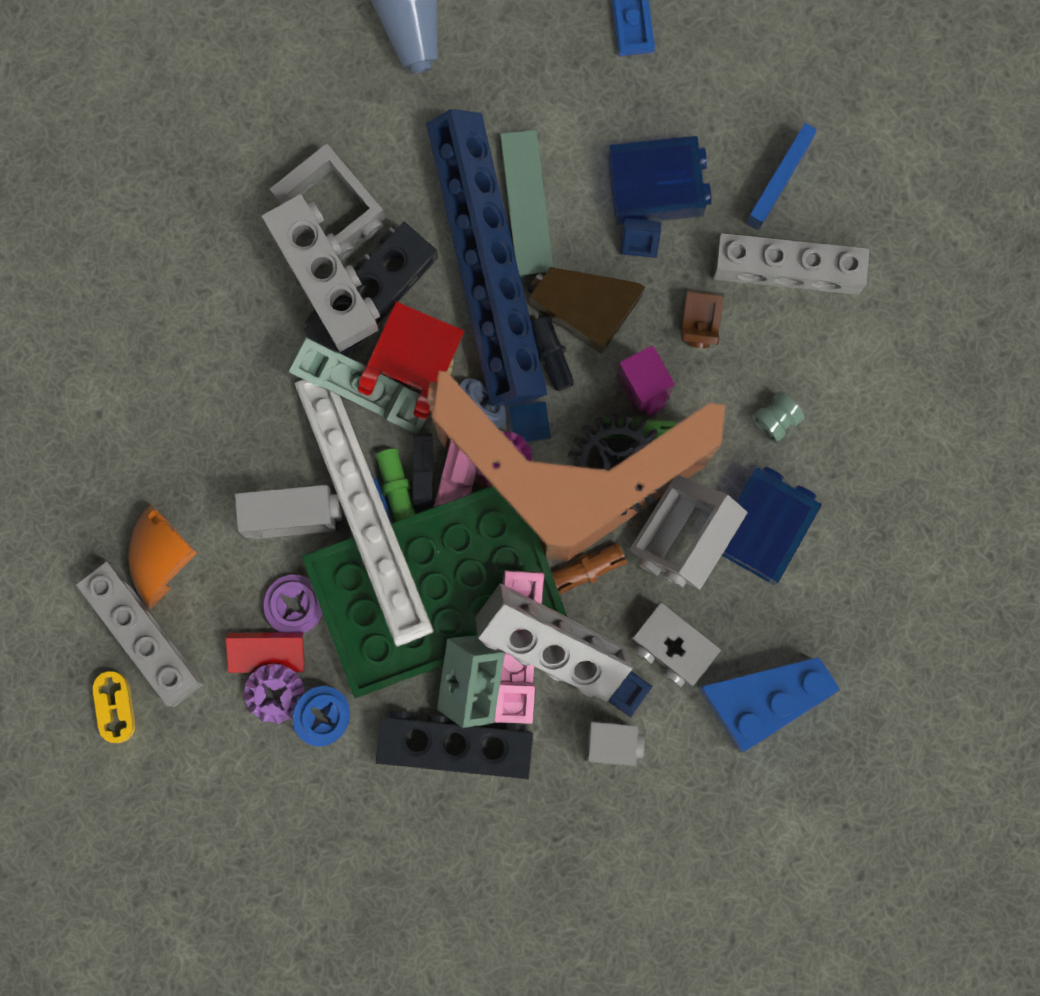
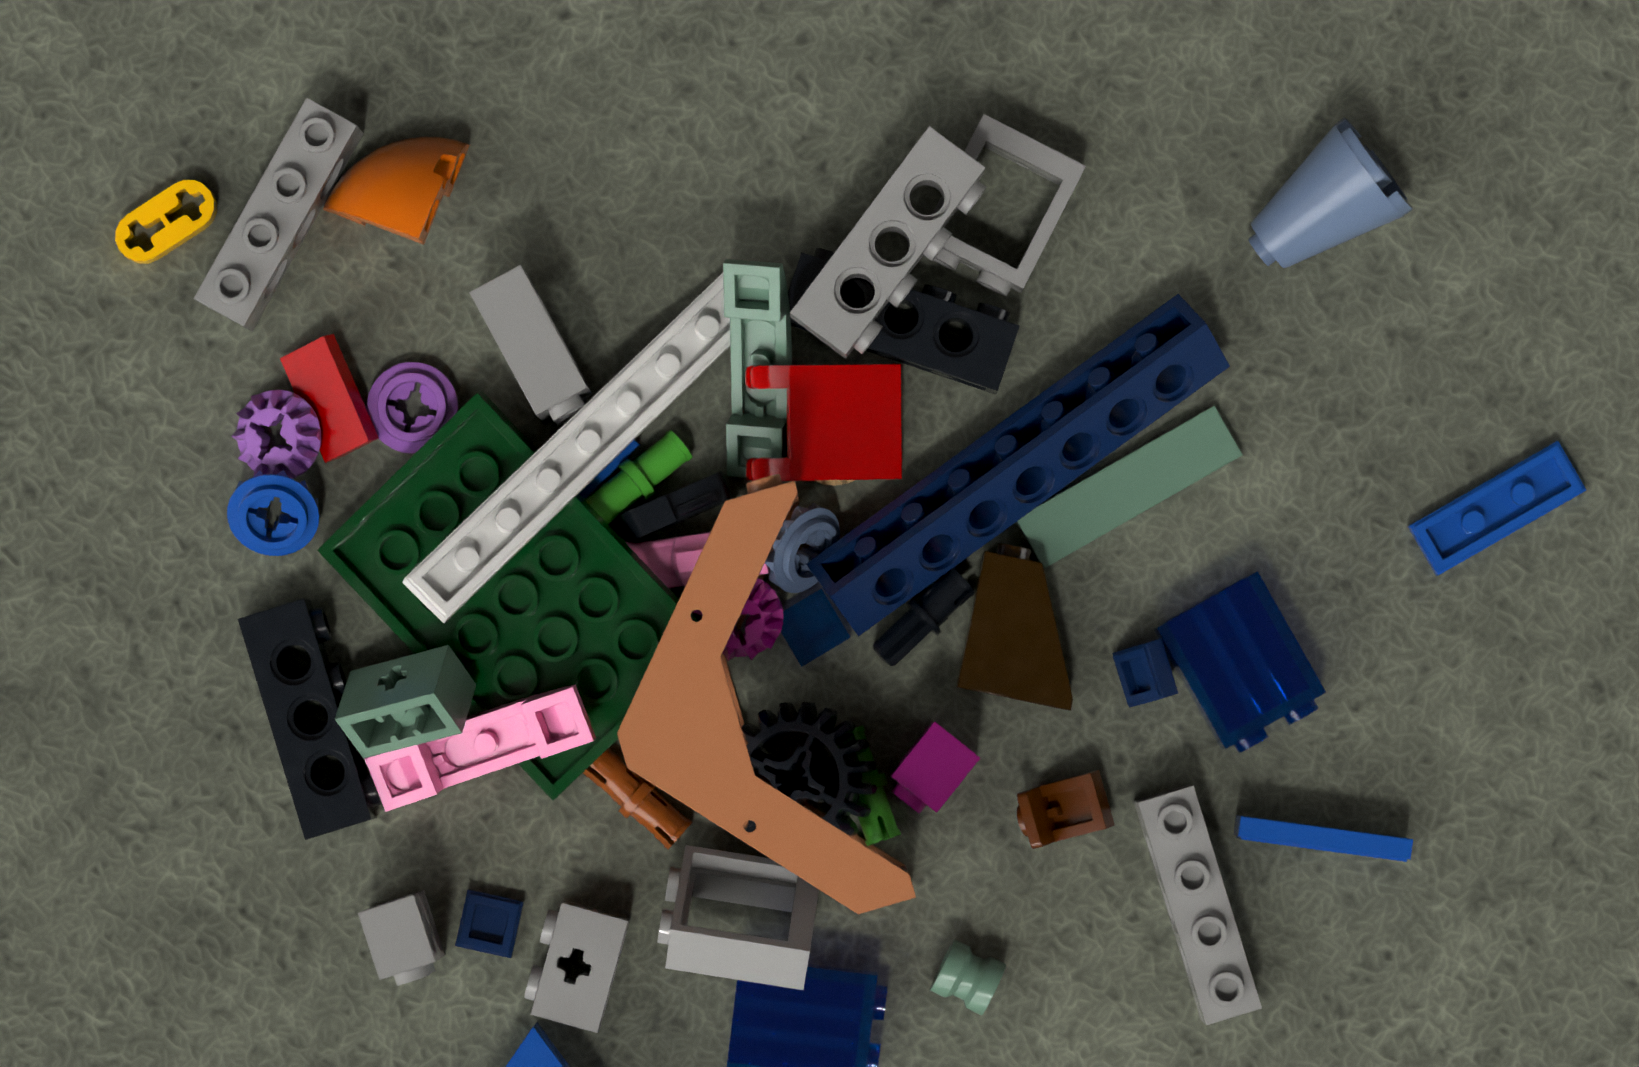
camera: 70 degrees right, 5 degrees up
(605, 659) = (504, 794): light grey brick -> none

